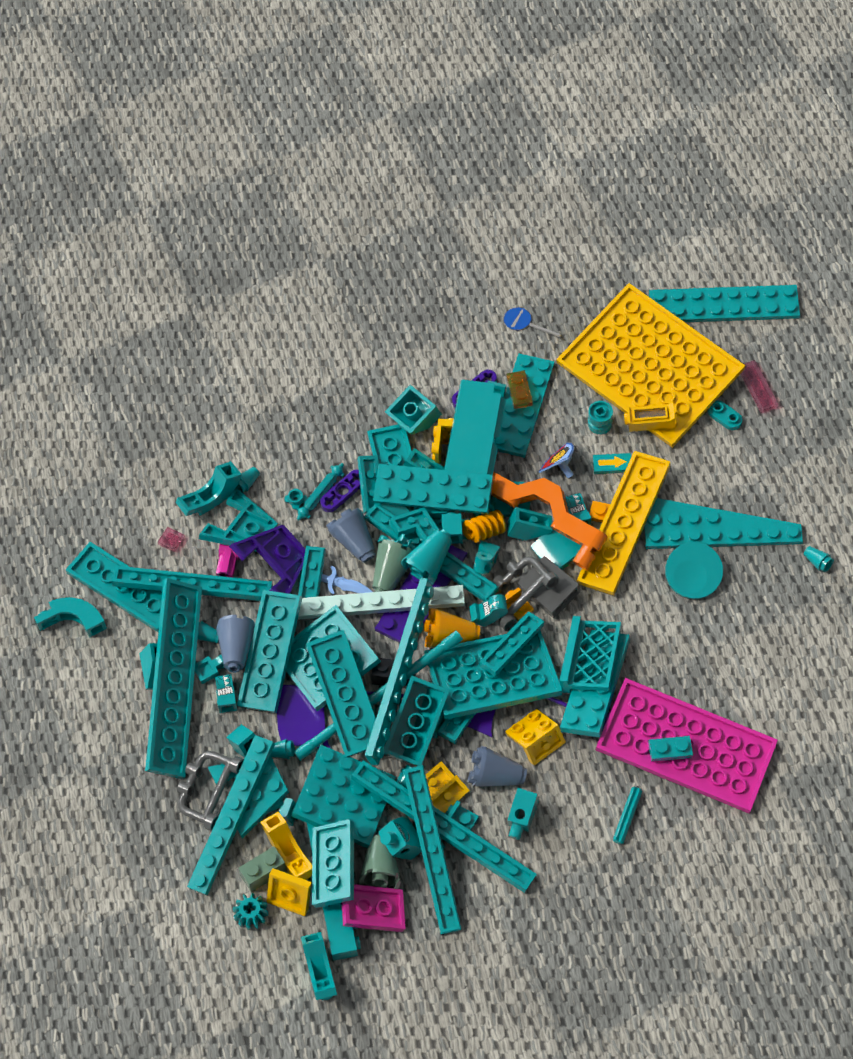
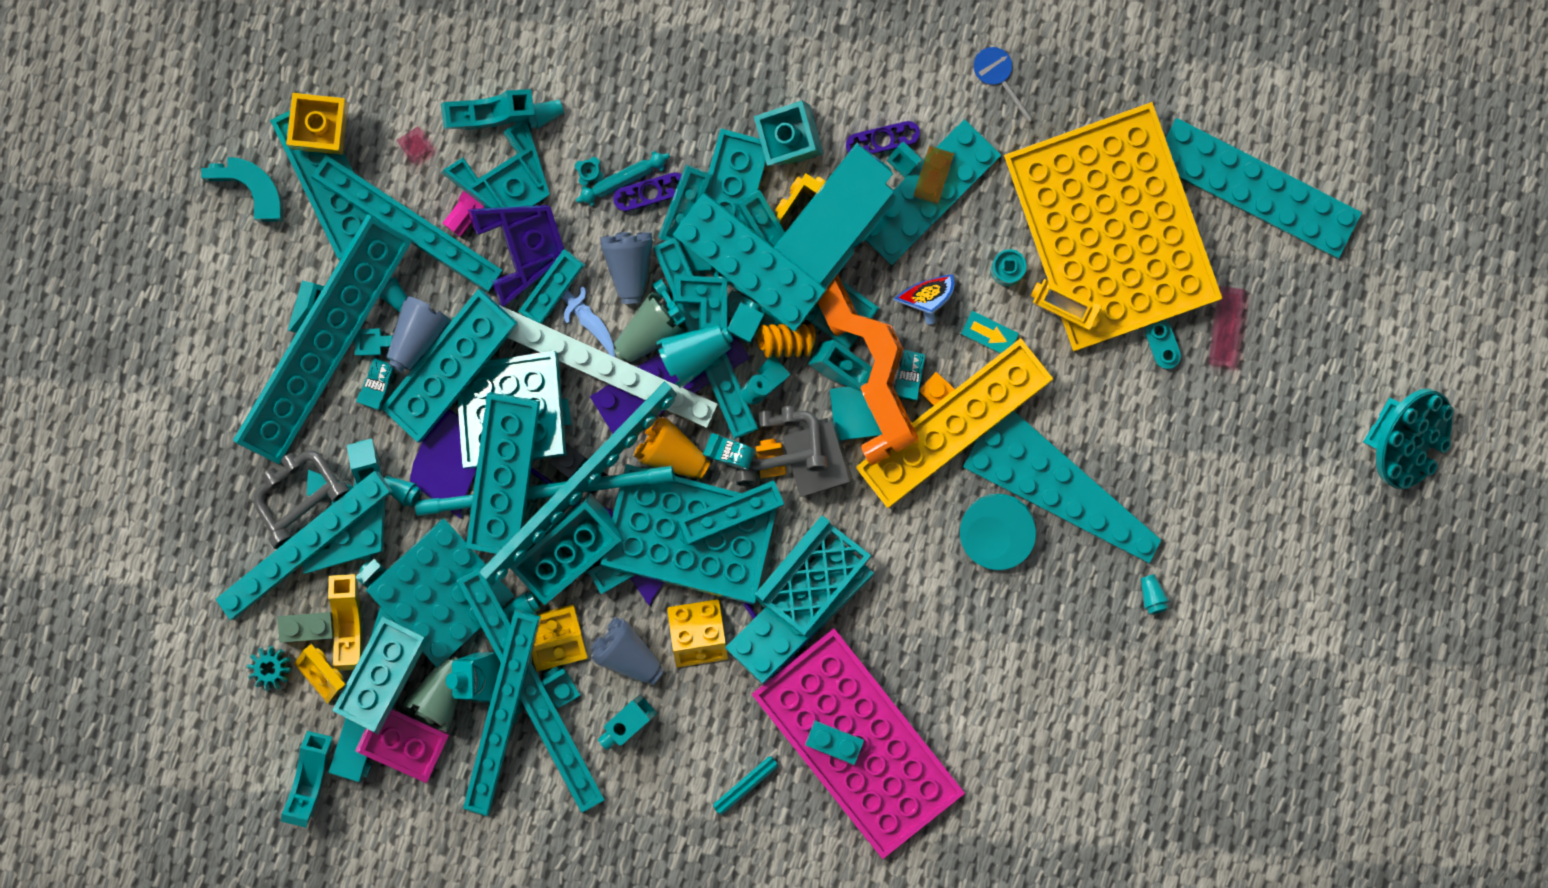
camera: 25 degrees right, 25 degrees up
(99, 549) = (317, 123): none -> yellow brick

